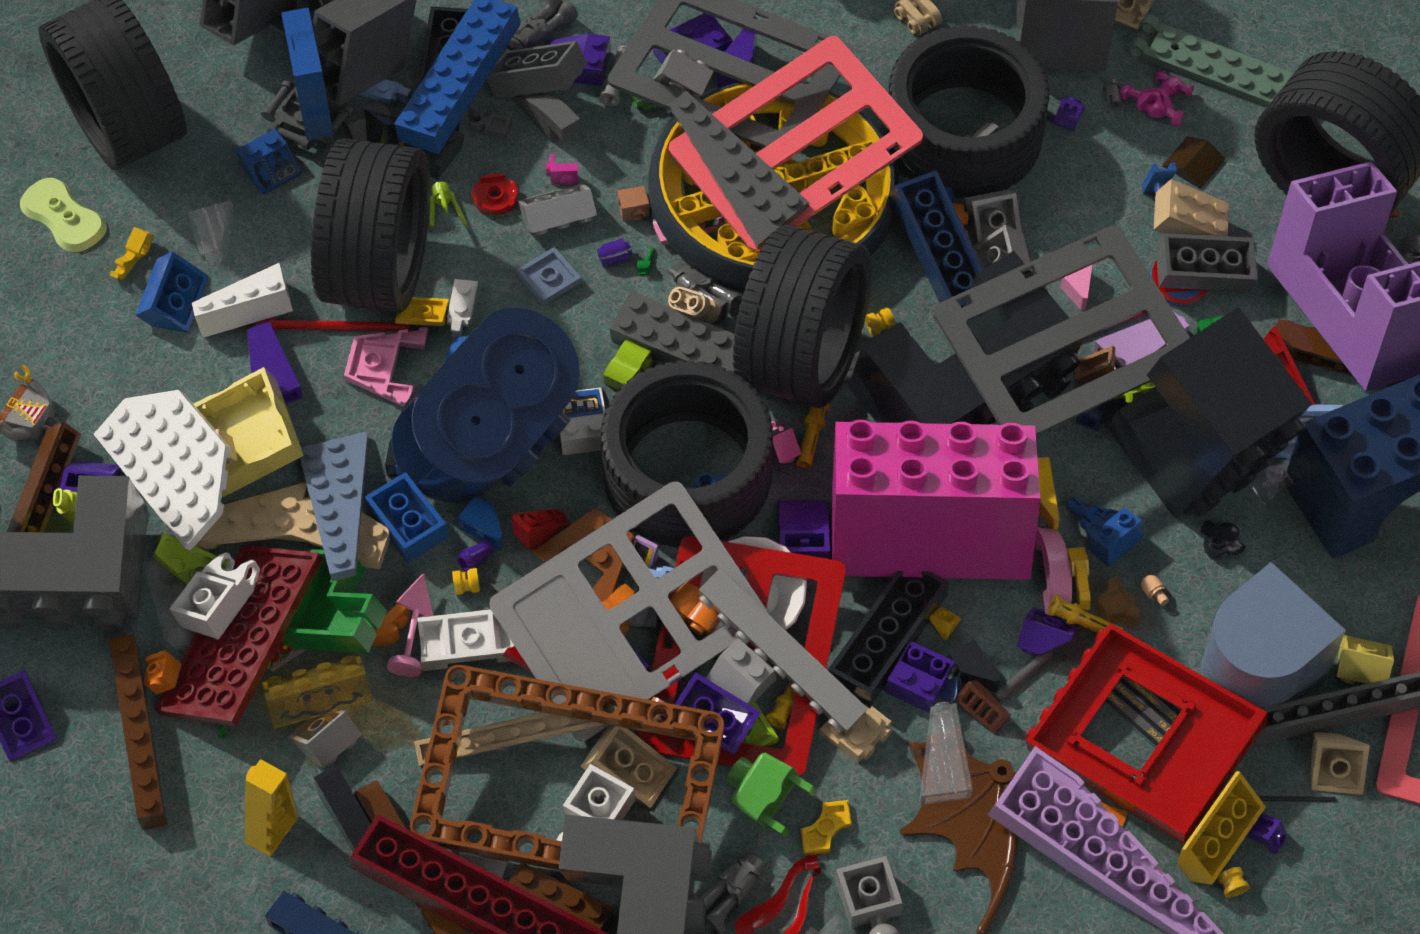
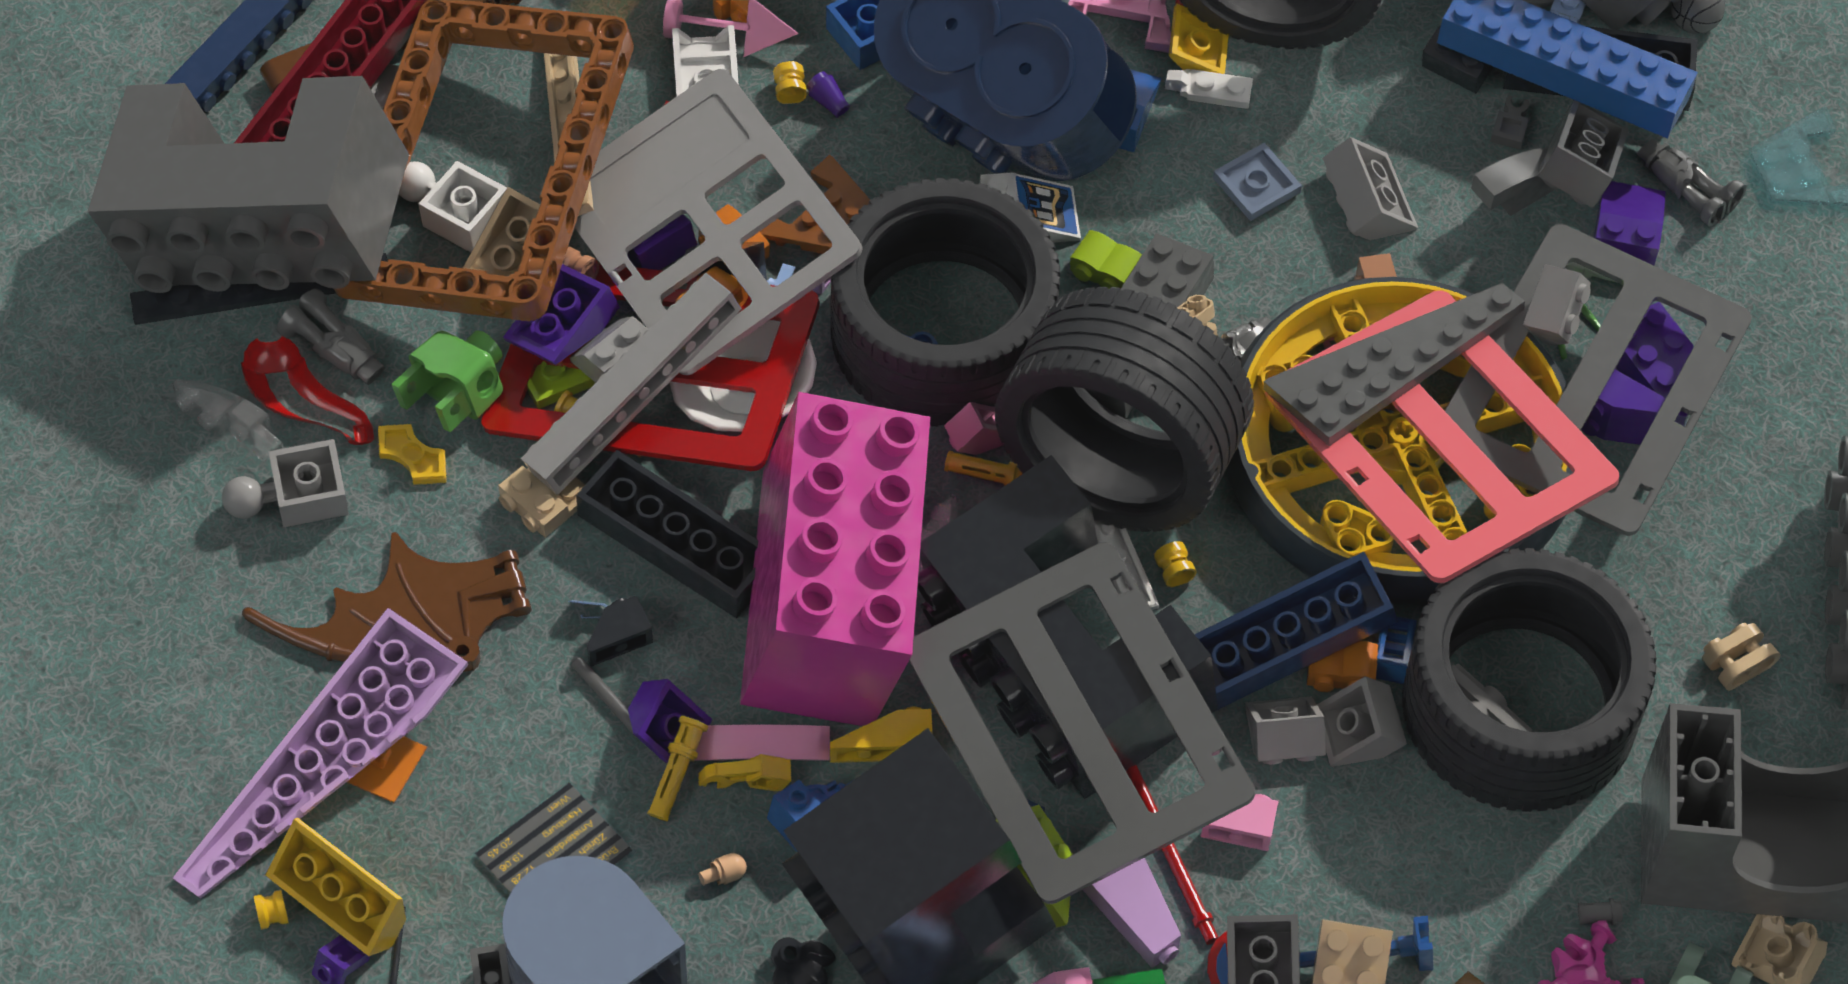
camera: 90 degrees right, 0 degrees up
(442, 196) = (1388, 64): lime plant -> none
(481, 521) = (873, 102): blue slope -> none
(495, 205) = (1393, 139): red plate -> none
(539, 526) = (858, 153): red slope -> none
(562, 173) = (1430, 190): dark pink bracket -> none
(614, 252) = (1294, 255): dark purple brick -> none
(644, 266) = (1275, 294): green hand -> none
(919, 676) = (604, 563): dark purple slope -> none
(944, 622) = (696, 609): yellow slope -> none
(945, 761) = (482, 576): clear slope -> none
(970, 705) = (563, 635): copper slope -> none
(1069, 113) = (1557, 845): dark purple bracket -> none
(1095, 365) = (1089, 829): medium nougat slope -> none
(1118, 604) = (700, 816): clear orange brick -> none
(1189, 760) = (449, 868): red panel -> none

